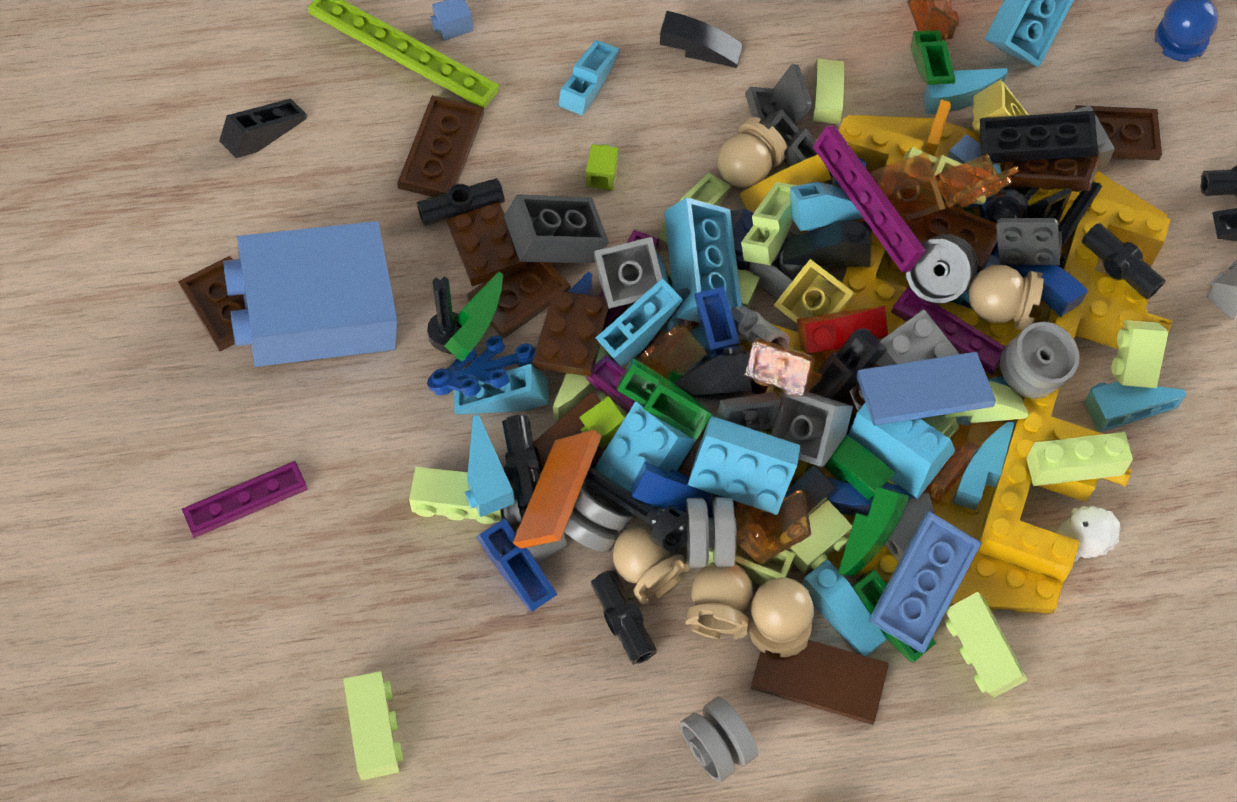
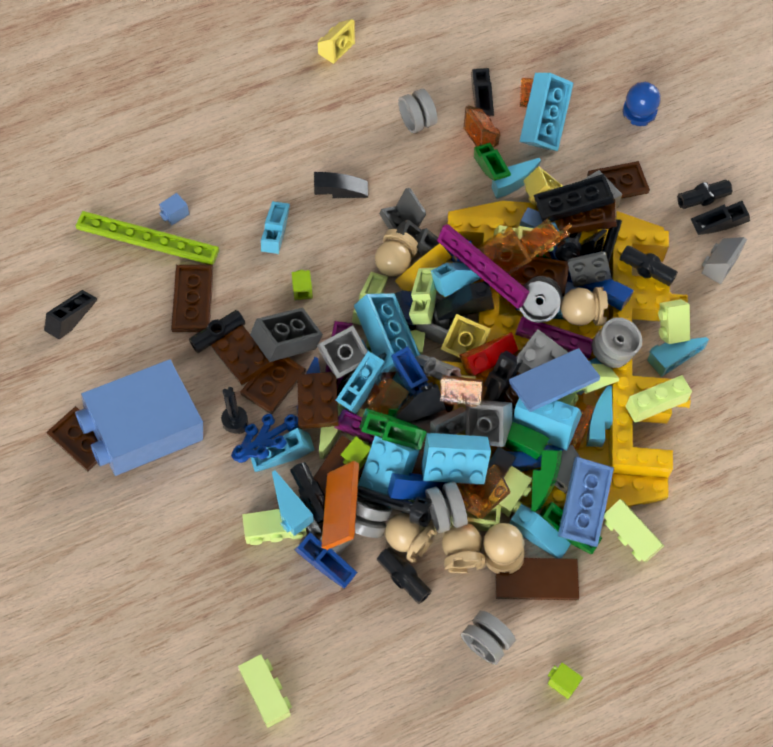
camera: 15 degrees left, 0 degrees up
(244, 499) = (134, 565): magenta tile -> none
(475, 318) = (252, 406): green slope -> none
(828, 91) = (431, 198): yellowish green slope -> none
(937, 127) = (508, 207): light orange tile -> none
(1094, 528) = (676, 438): white animal -> none

